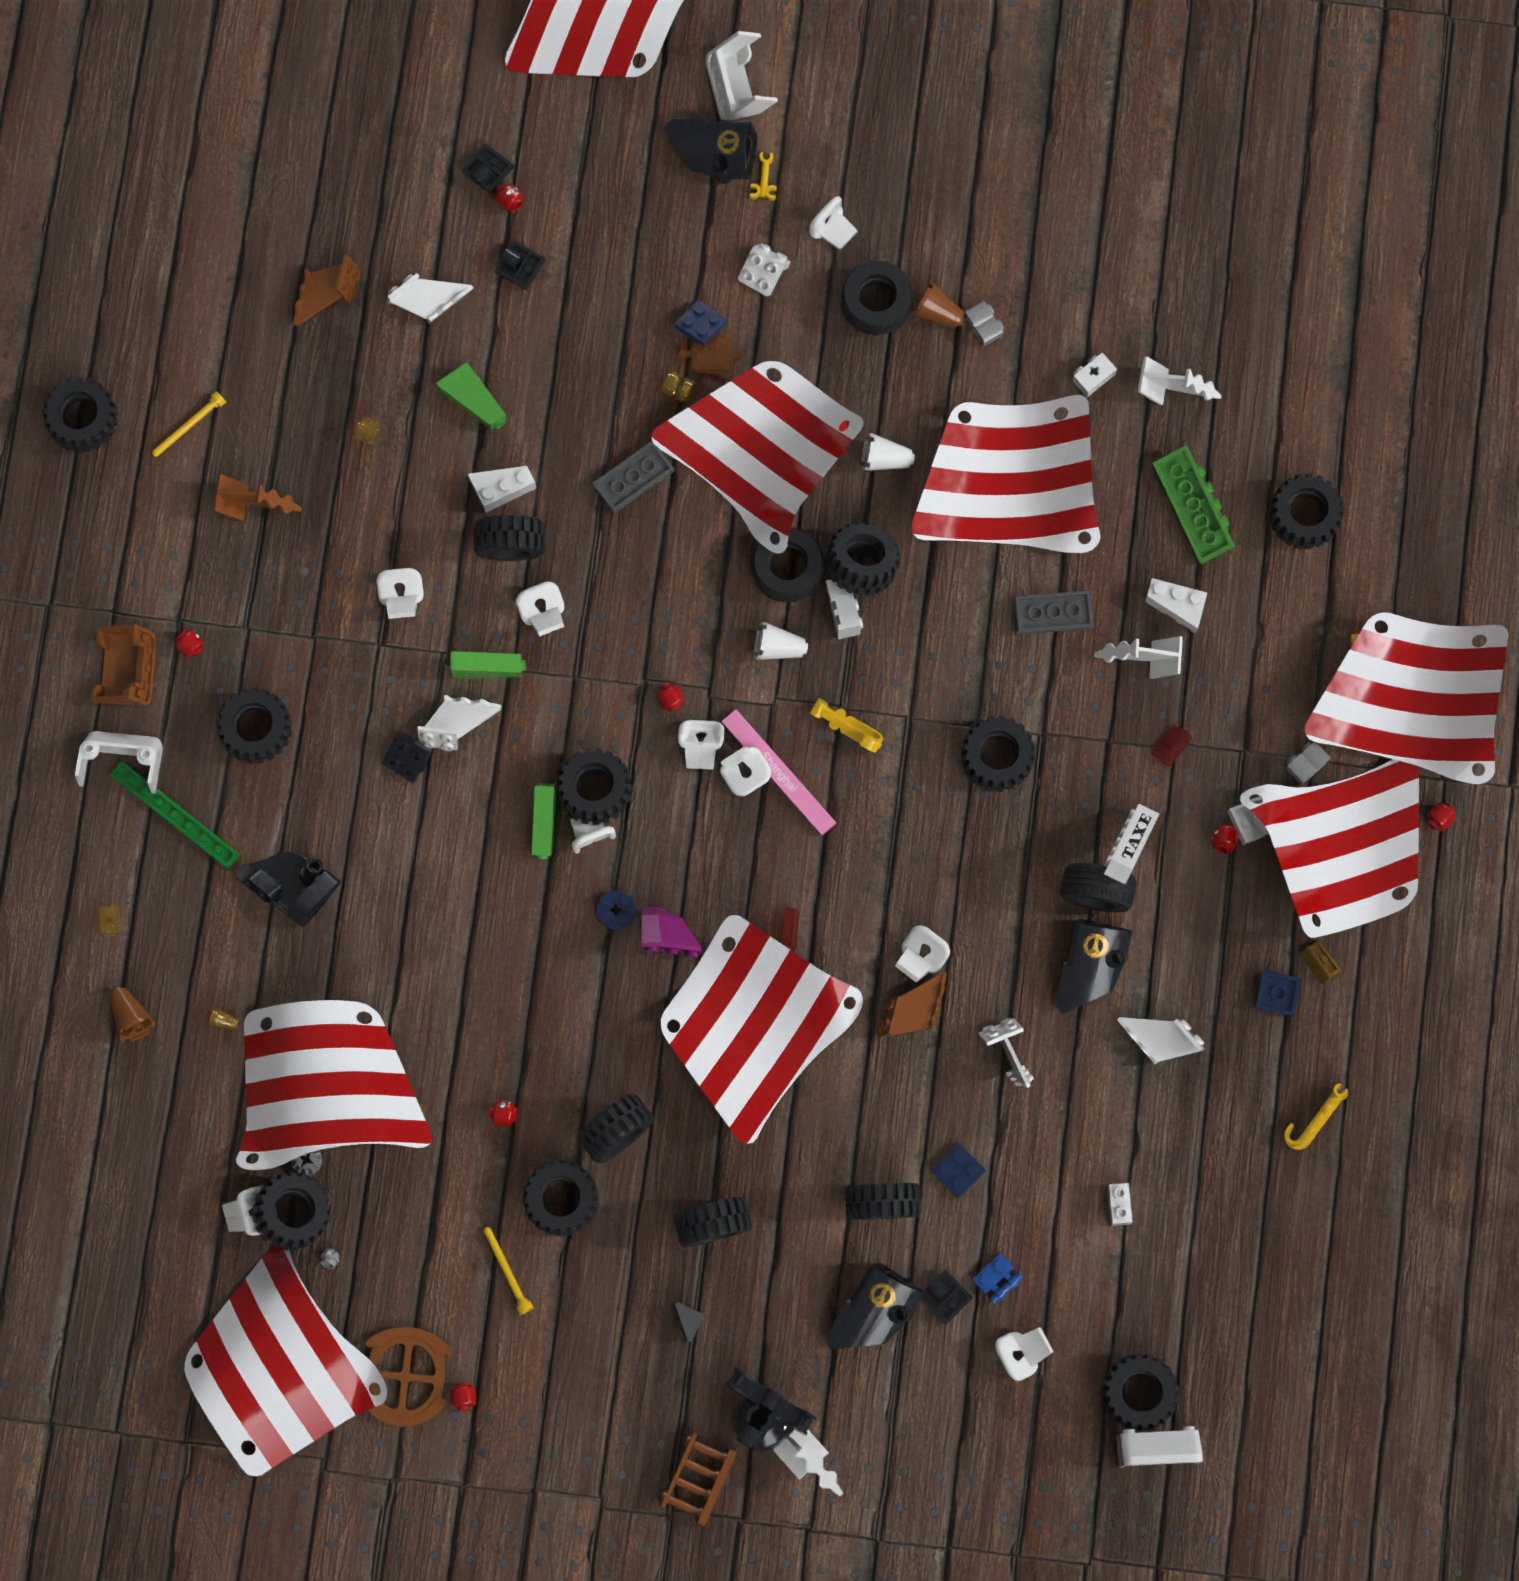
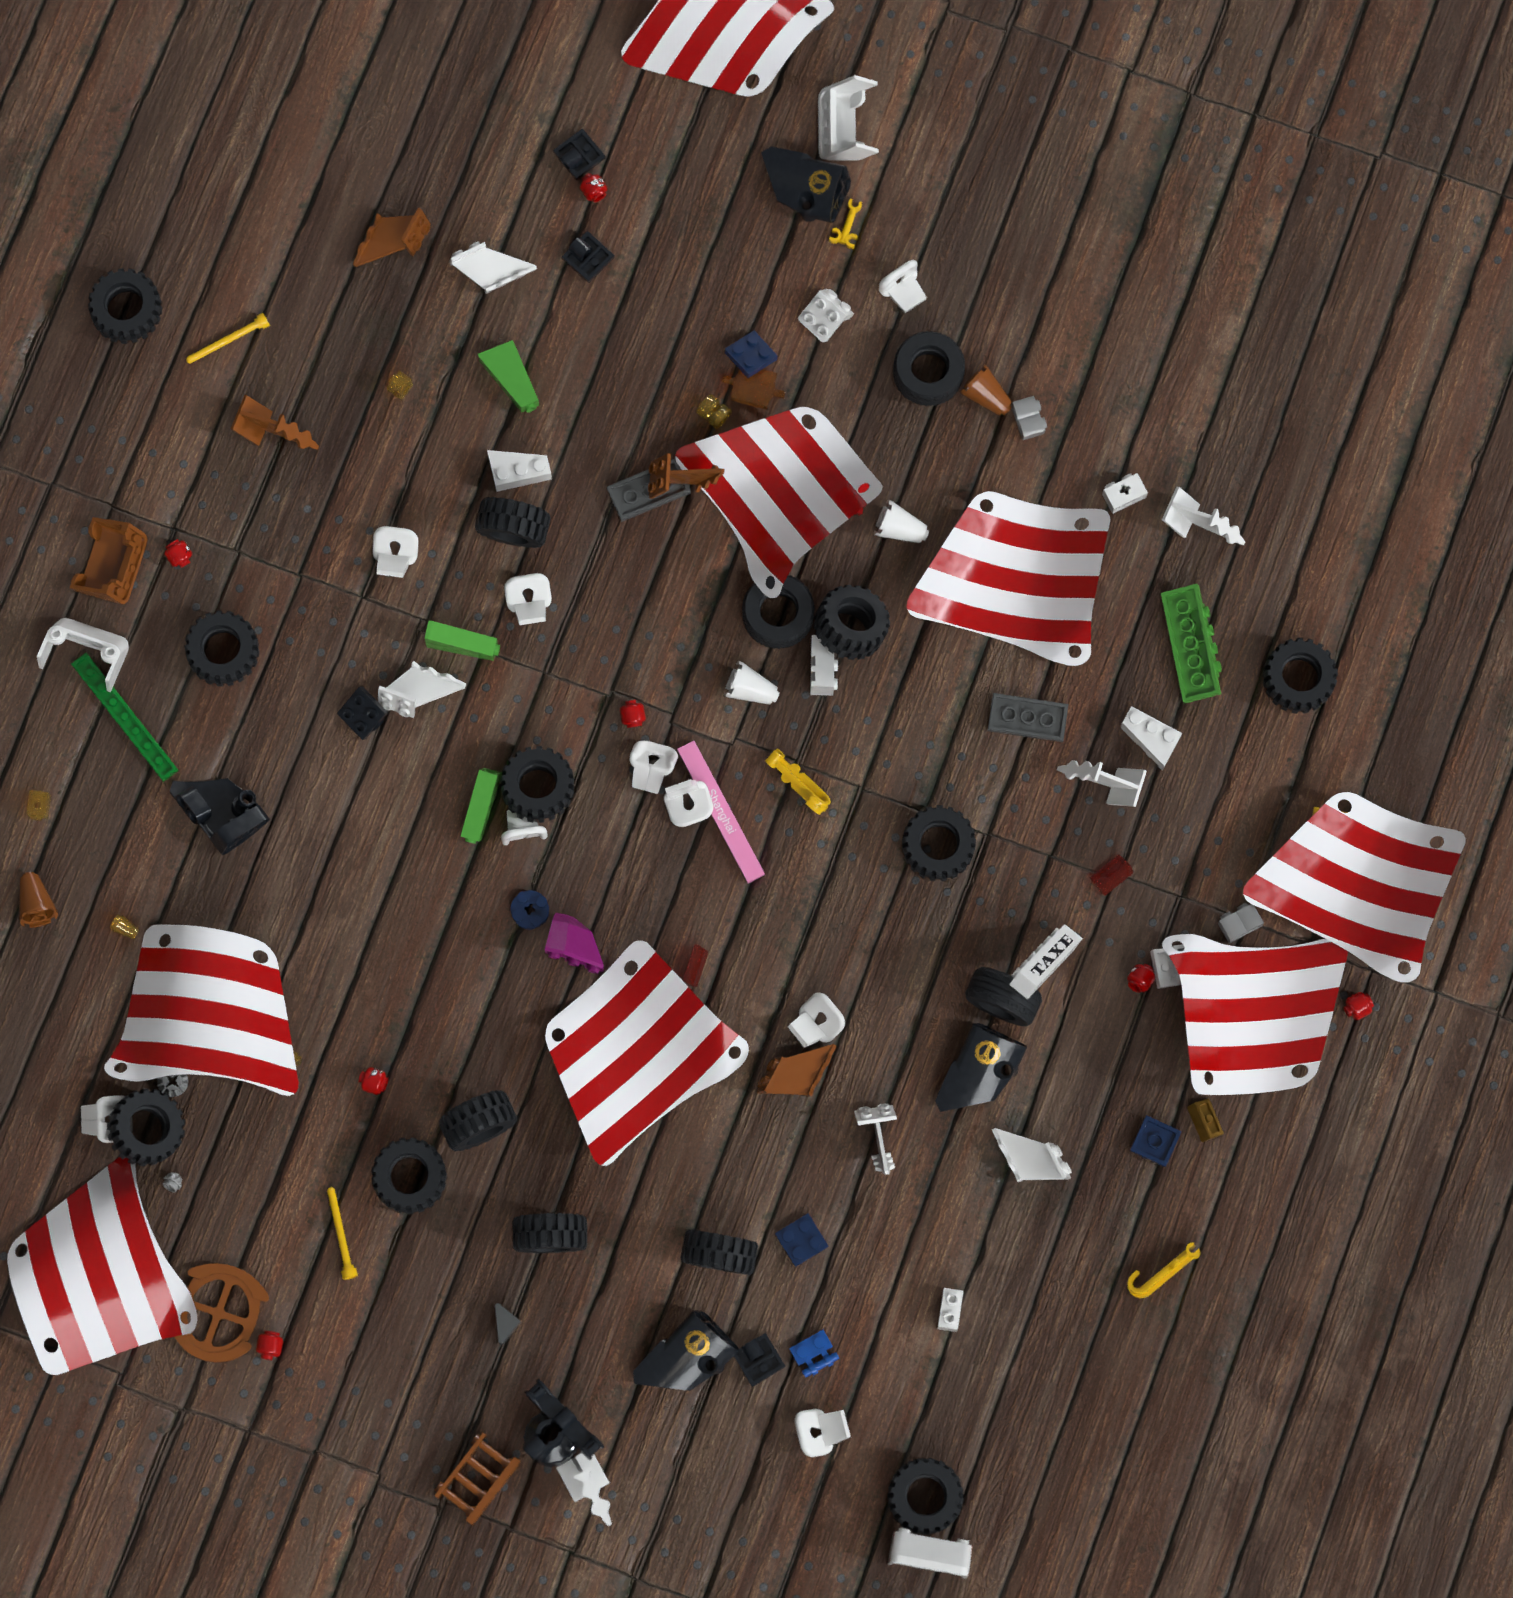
camera: 10 degrees right, 0 degrees up
(644, 460) = (662, 475): none -> dark orange piece

